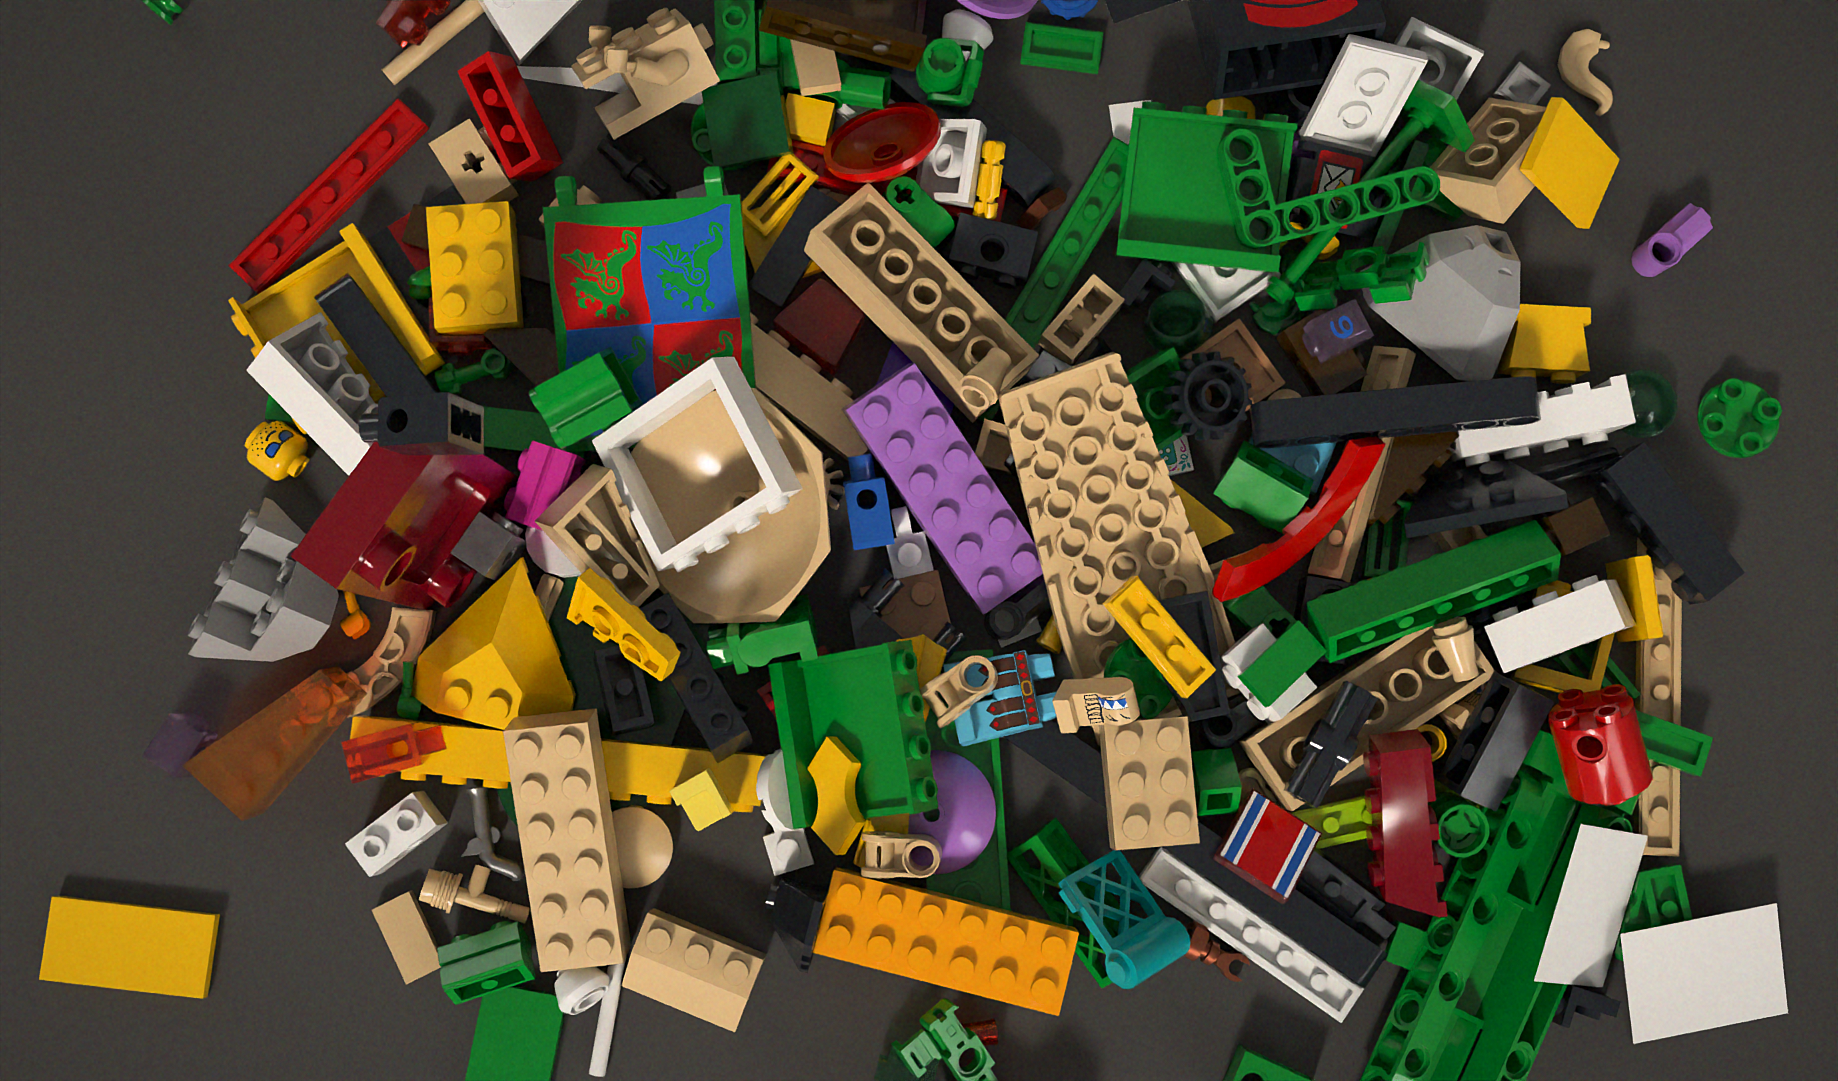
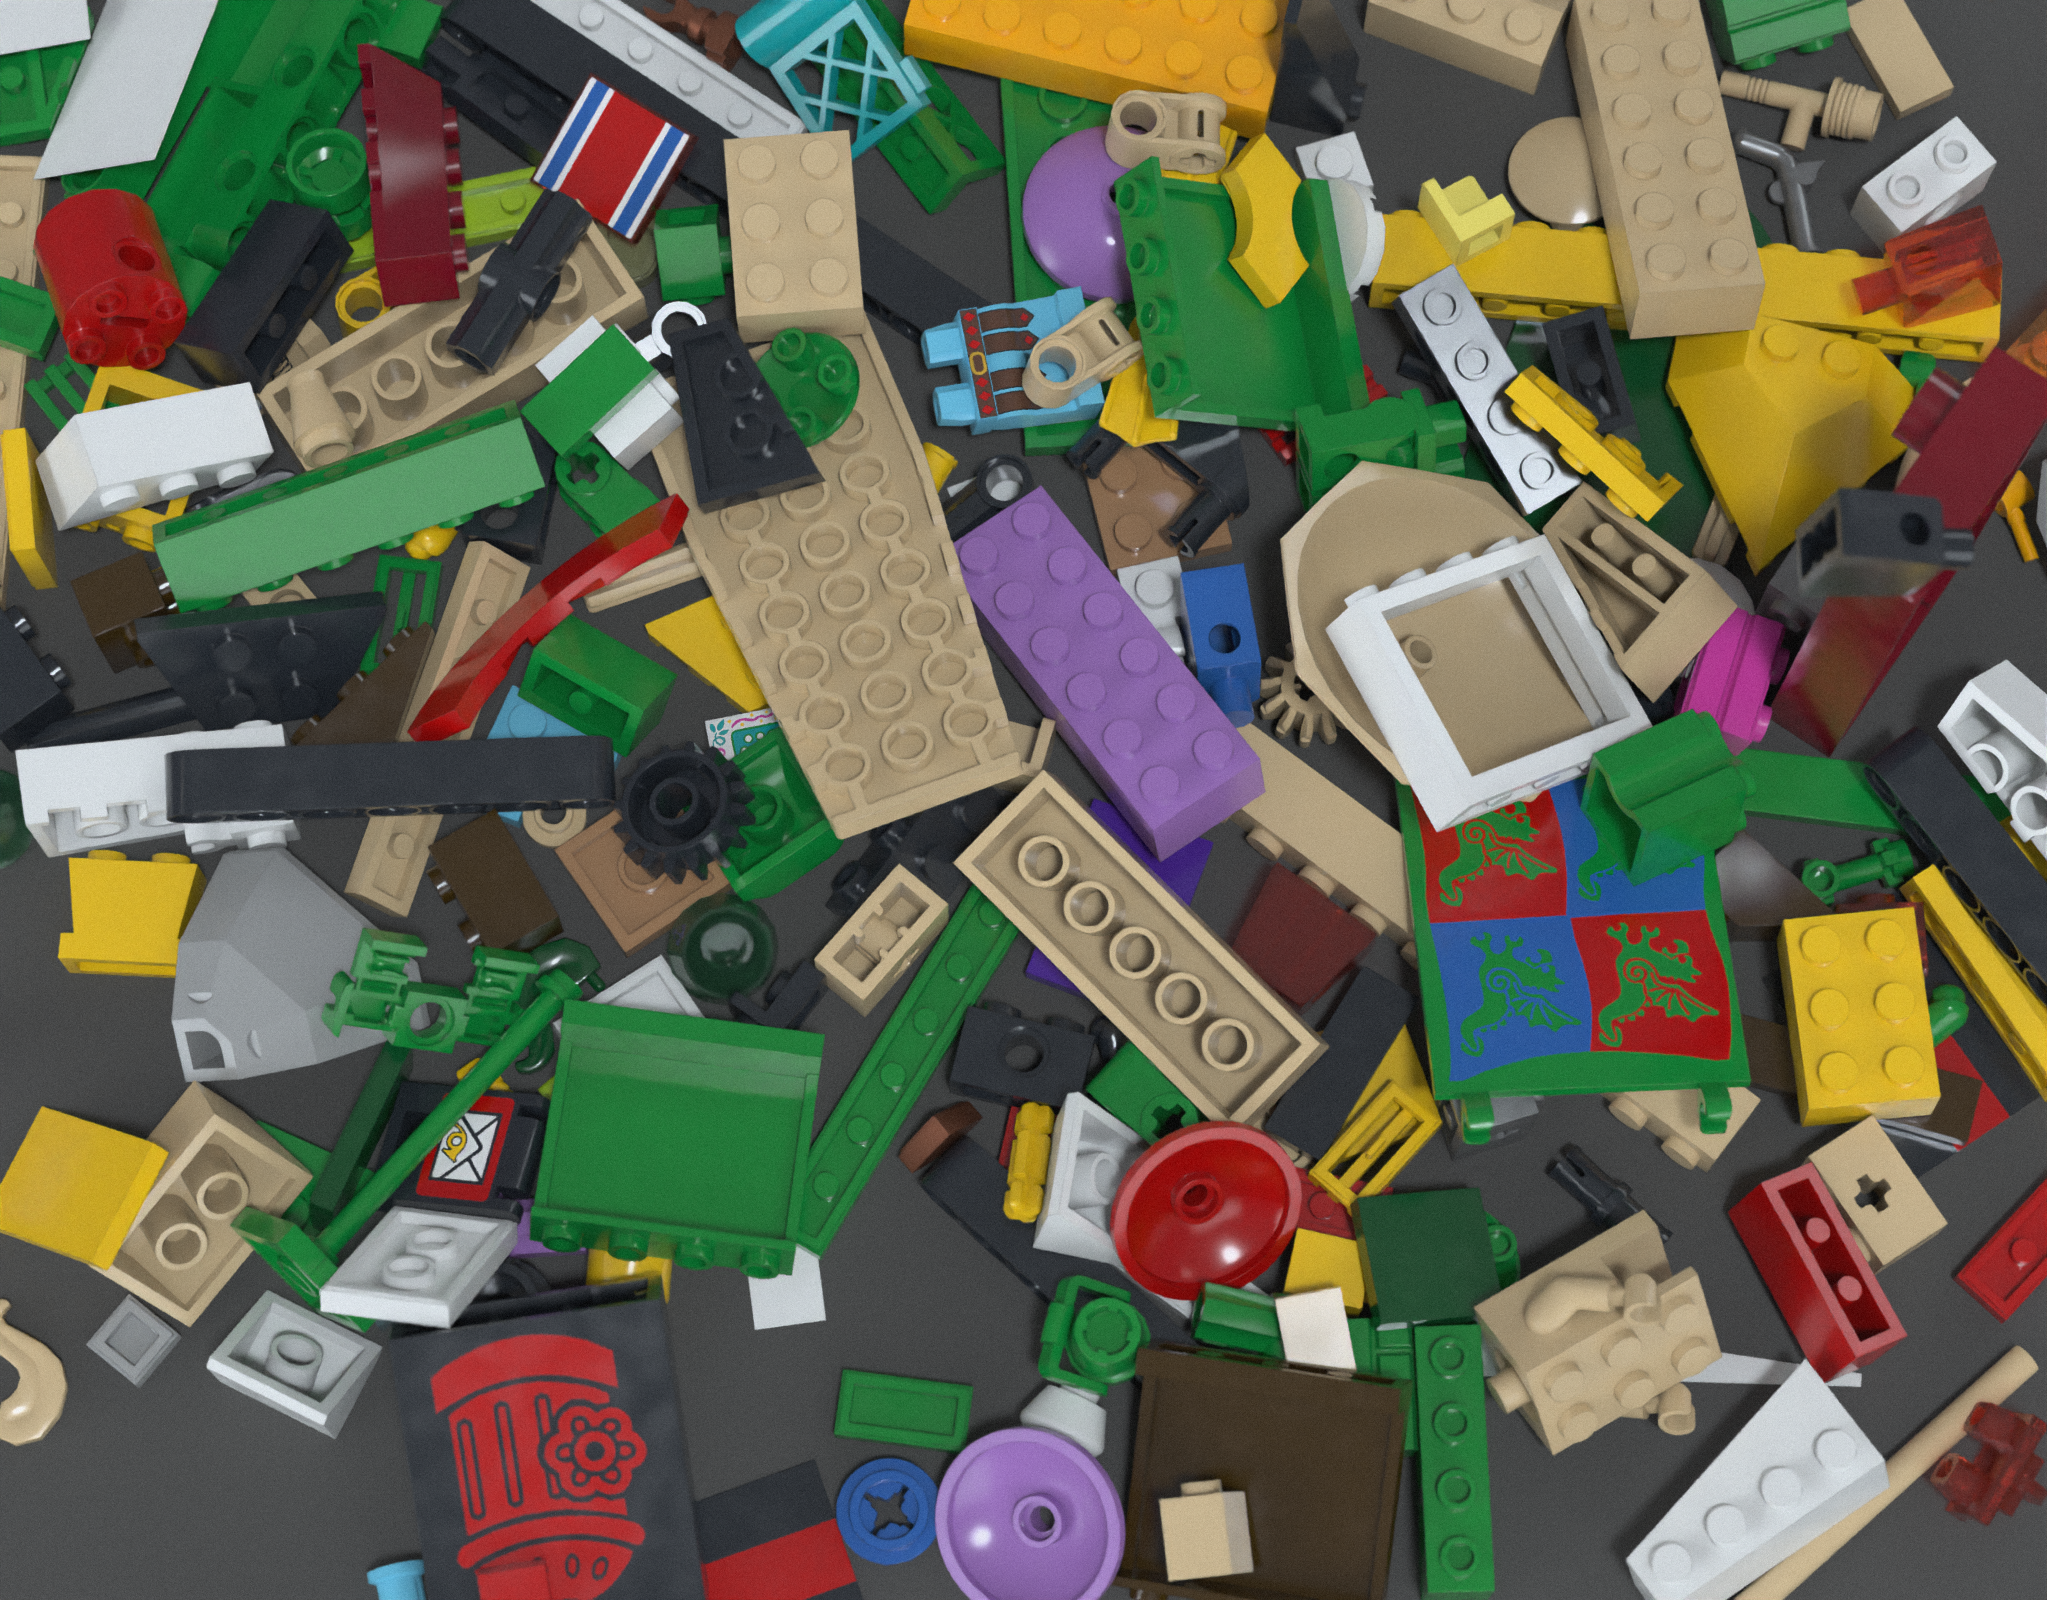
camera: 175 degrees left, 10 degrees down
(983, 382) = (1041, 801): tan cone -> none
(1095, 703) = (875, 336): tan leg -> none
(1159, 636) = (776, 427): yellow tile -> none
(1315, 206) = (500, 1105): green beam -> none
(1336, 331) = (479, 897): clear purple brick -> none

